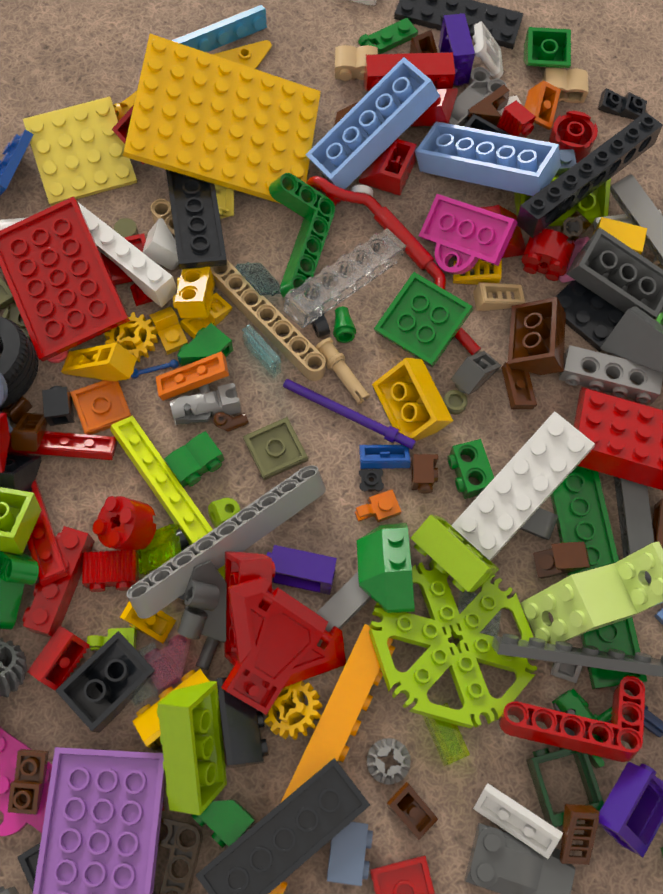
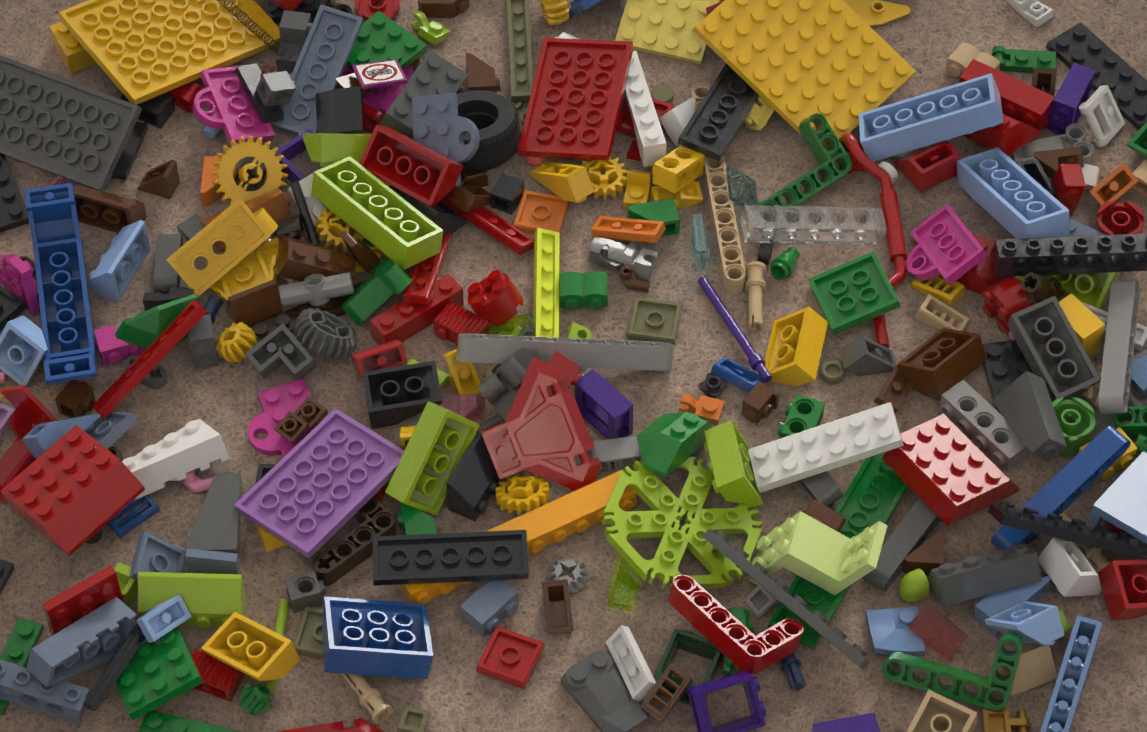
camera: 40 degrees right, 15 degrees down
(173, 364) = (585, 205): blue hinge -> none

